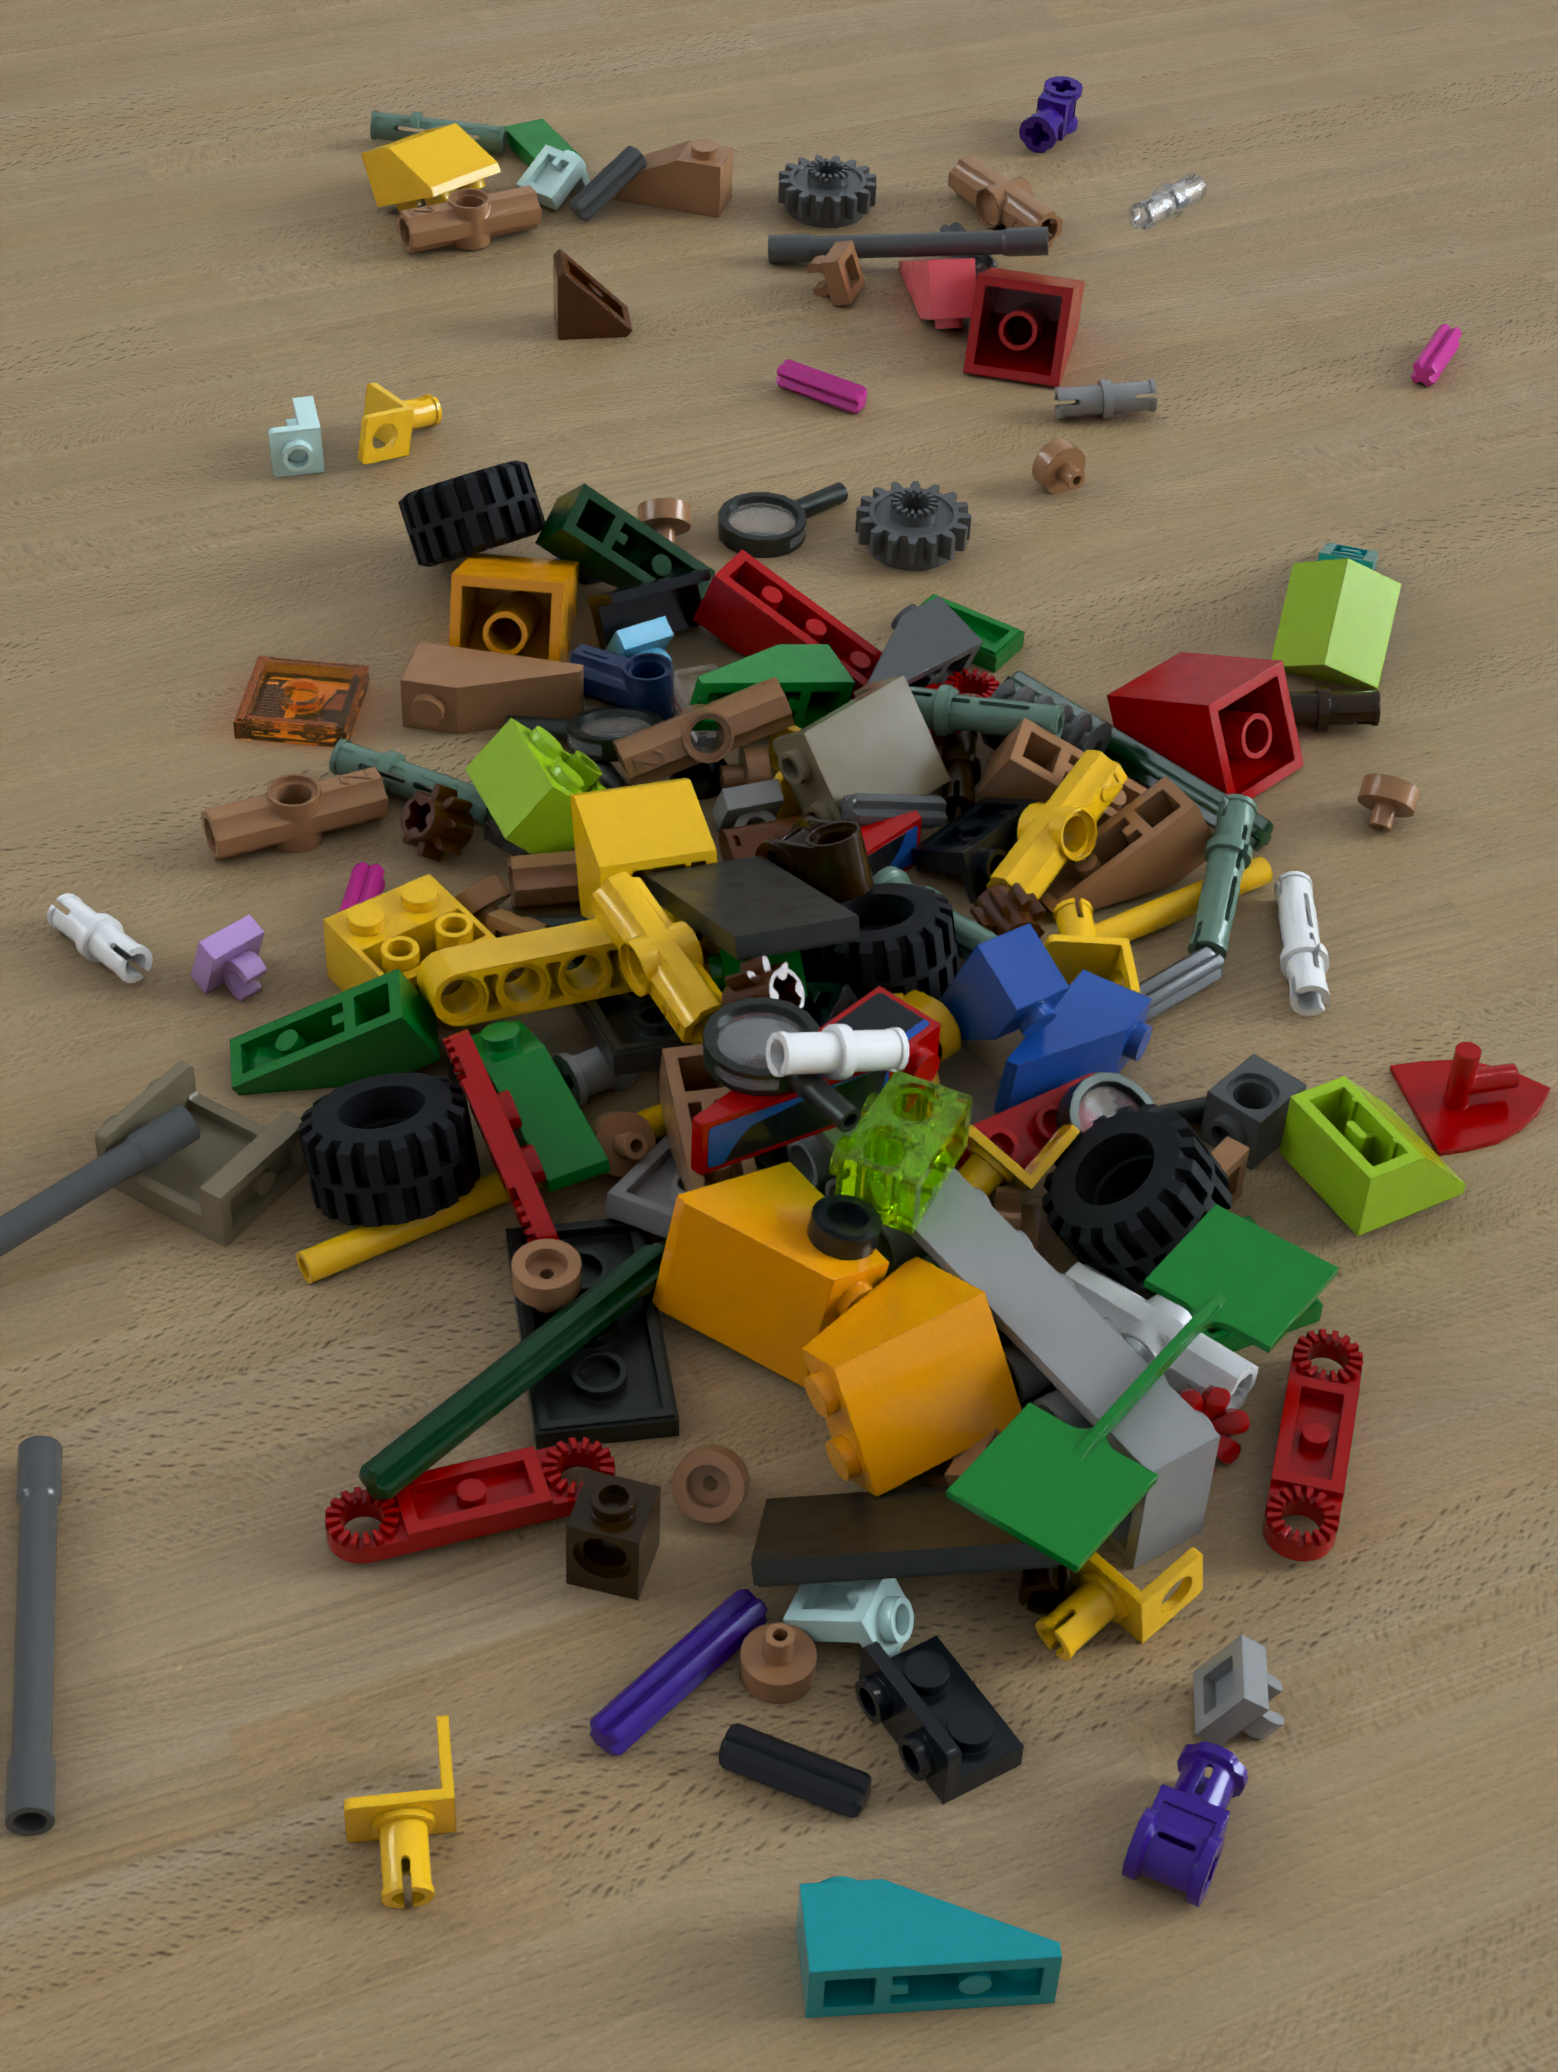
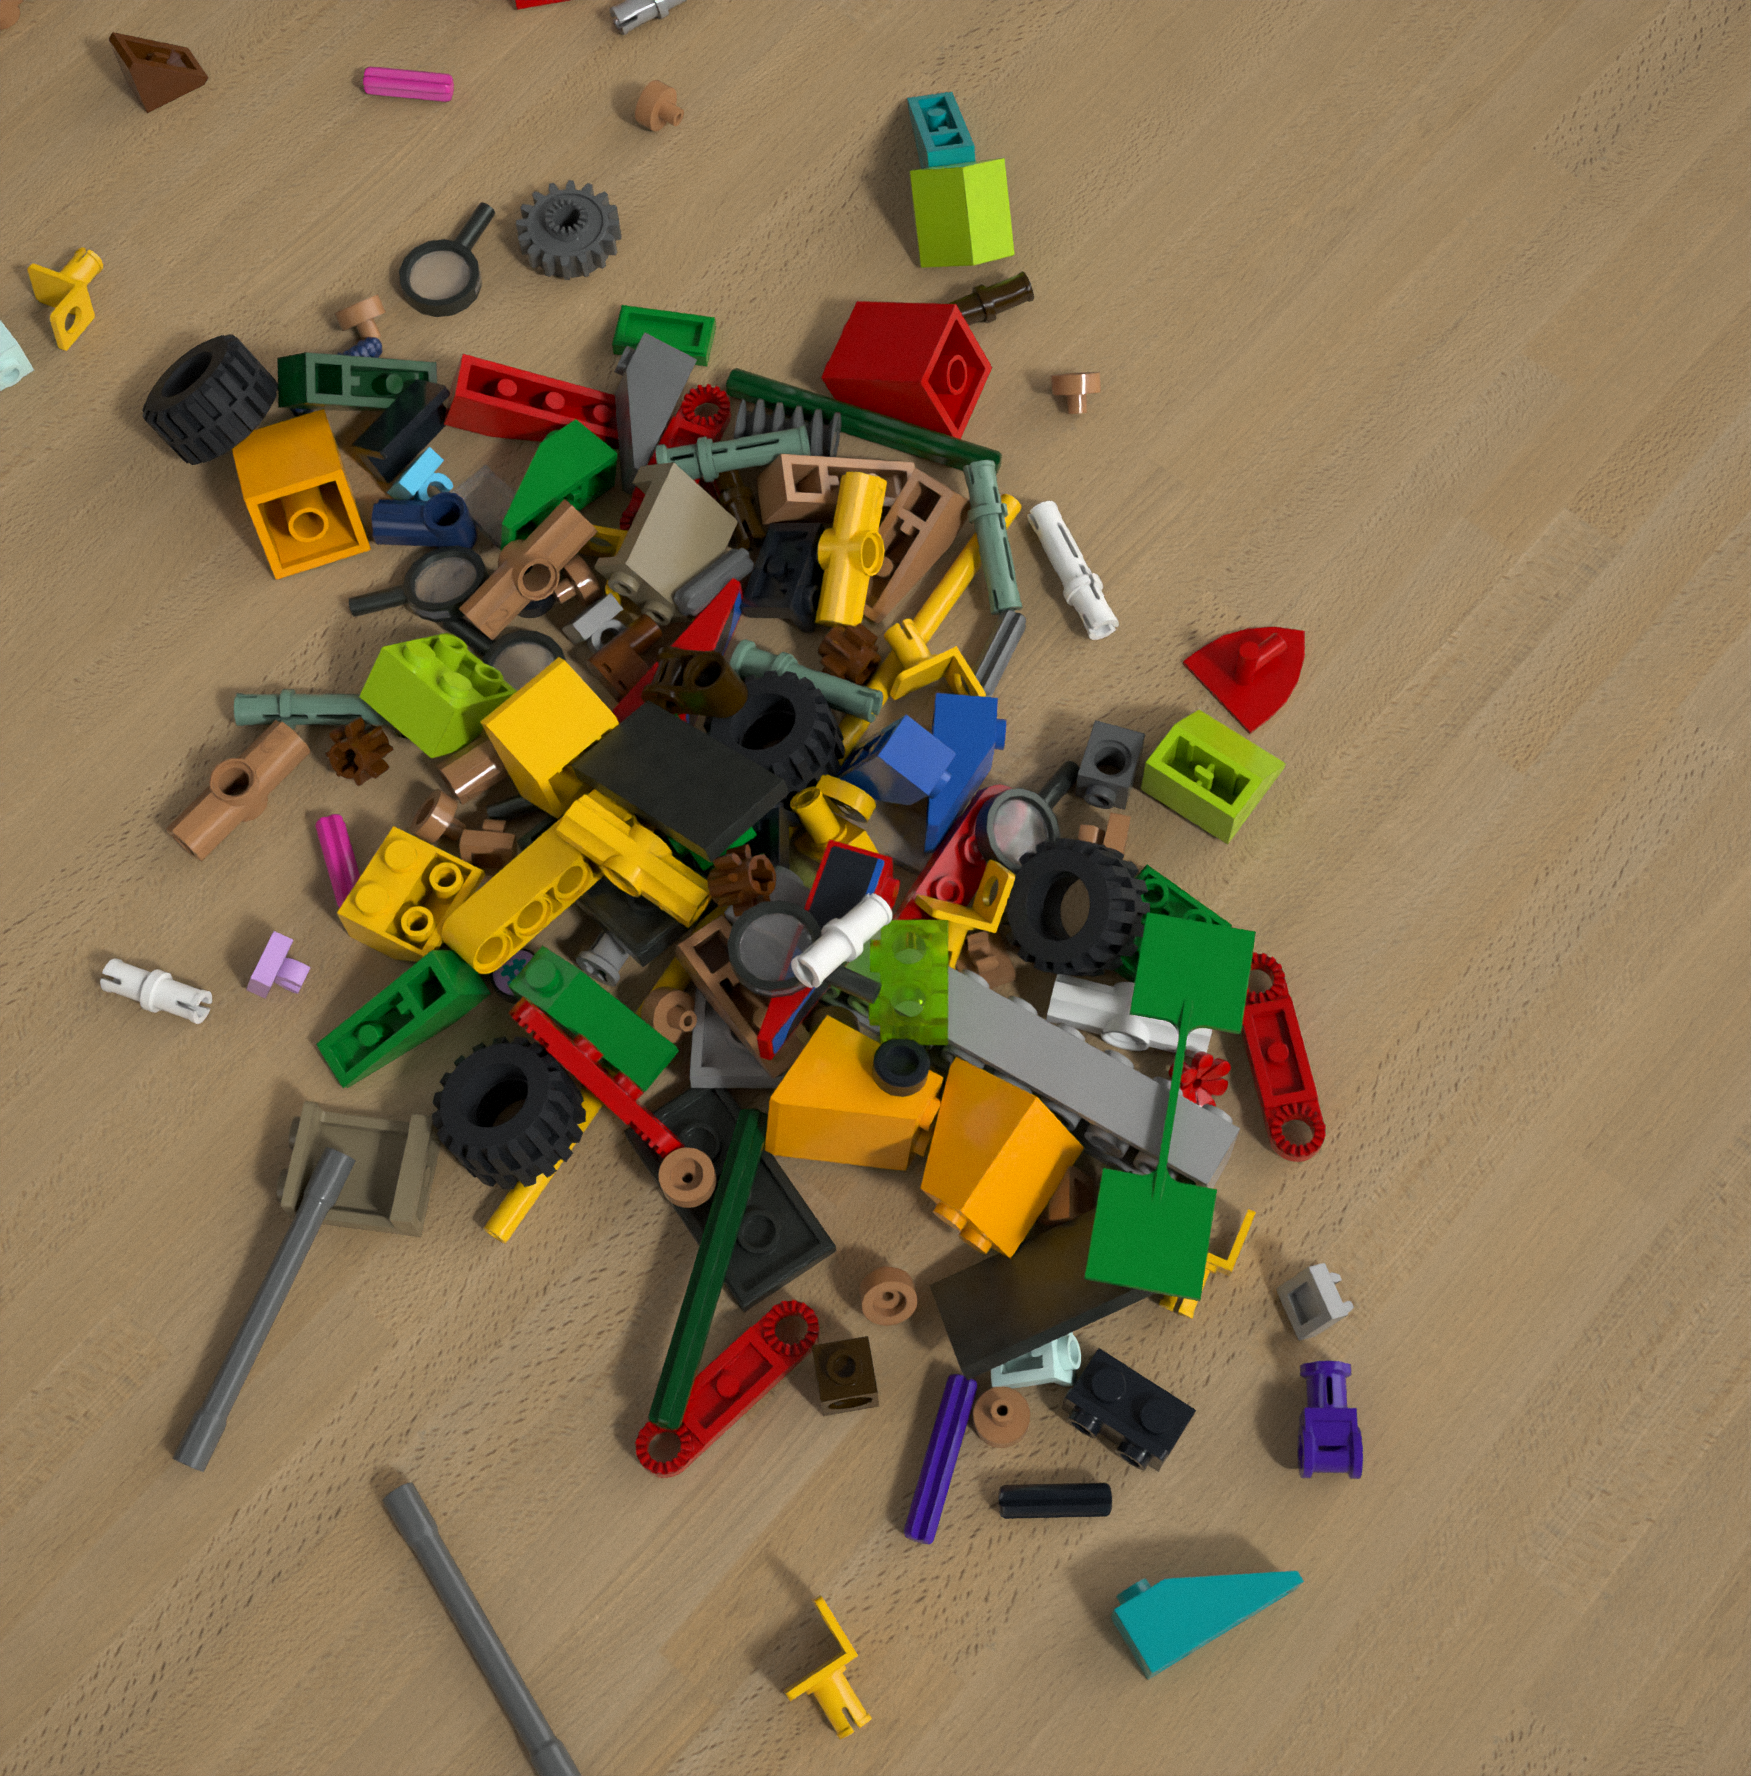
camera: 20 degrees left, 25 degrees up
(301, 701) = (169, 655): clear orange tile -> none
(477, 689) = (311, 586): medium nougat slope -> none

